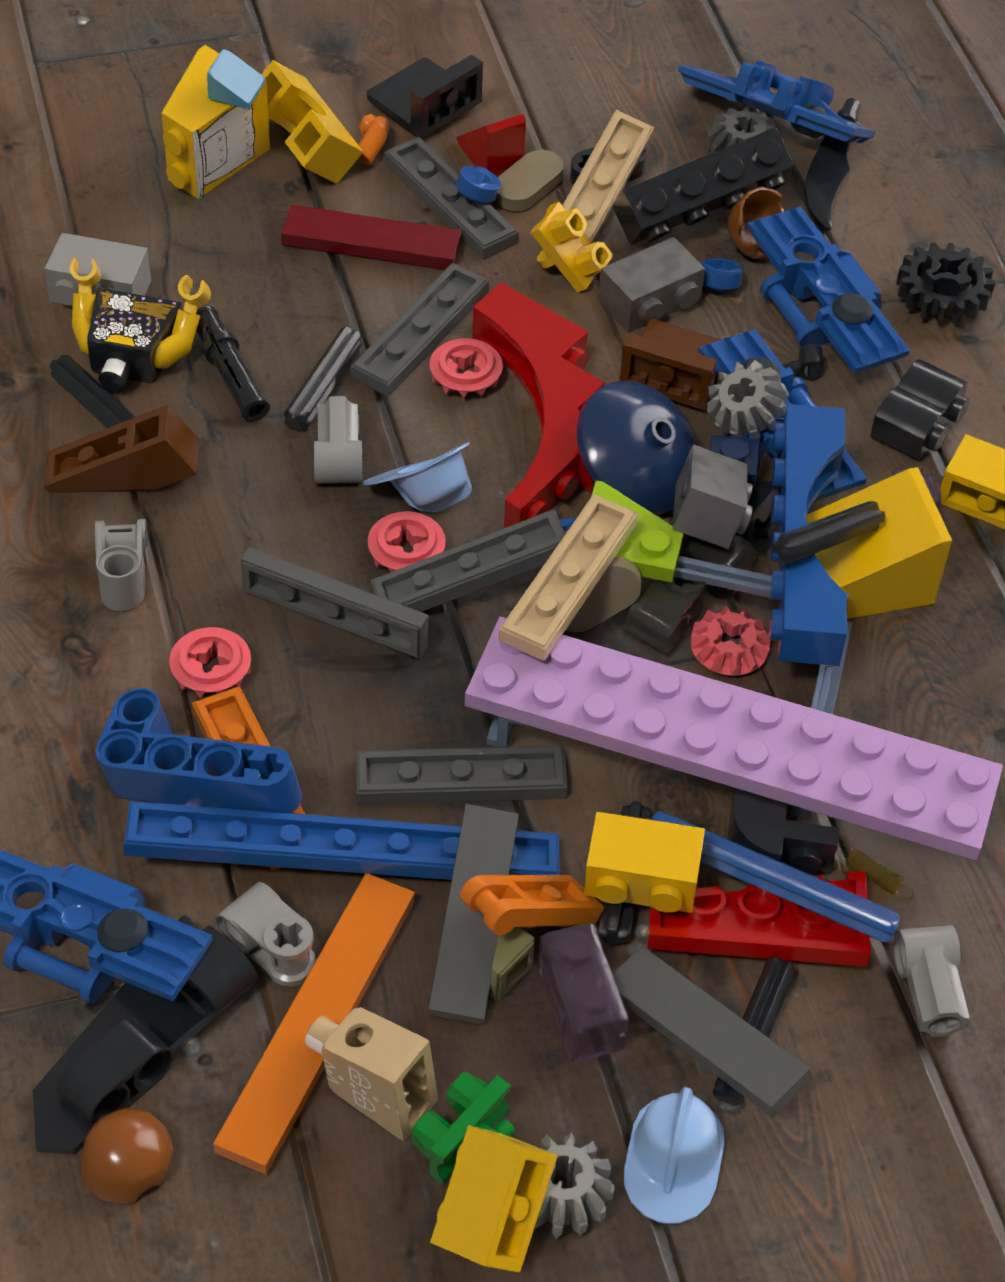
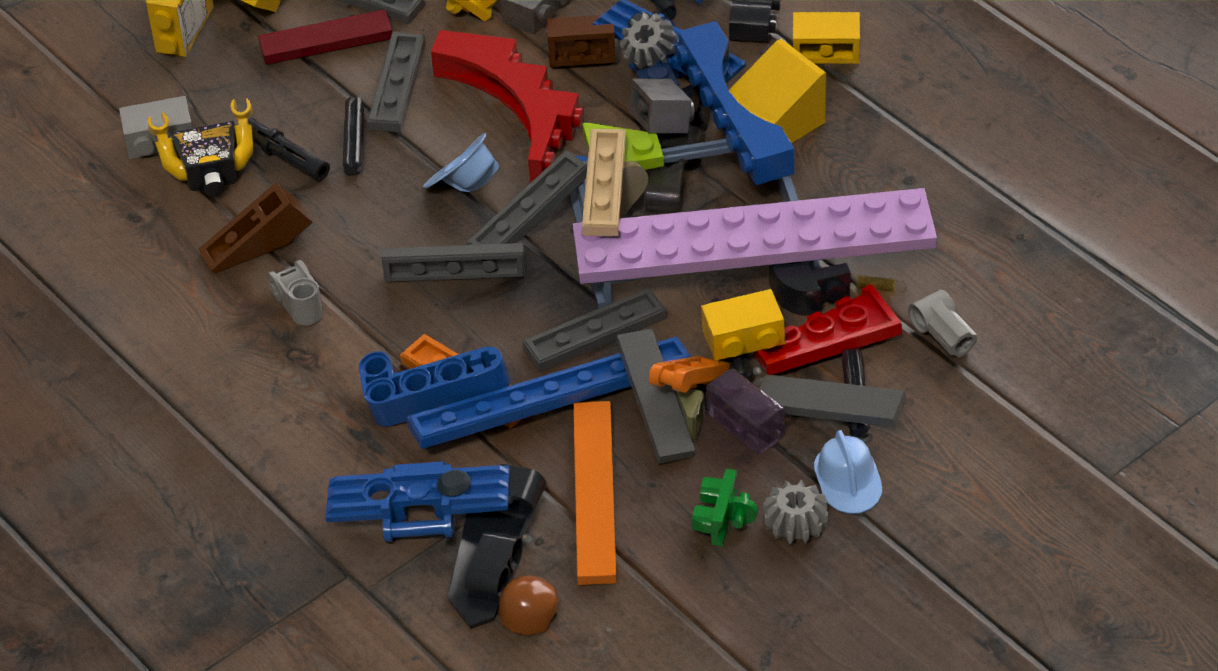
camera: 20 degrees left, 5 degrees down
(88, 392) = (203, 203): black axle -> none
(198, 648) = (405, 318): coral gear -> none
(269, 934) = (540, 454): light grey piece -> none
(338, 448) = (393, 173): light grey piece -> none
(377, 1068) = (651, 495): tan torso -> none
(421, 532) = (475, 202): coral gear -> none
(462, 354) = (435, 86): coral gear -> none
(493, 1199) = (763, 527): yellow brick -> none
(635, 442) = (590, 93): dark blue dish -> none
(727, 656) = (725, 197): coral gear -> none
(794, 885) = (843, 304): blue axle -> none
(828, 532) = (750, 94): black axle -> none

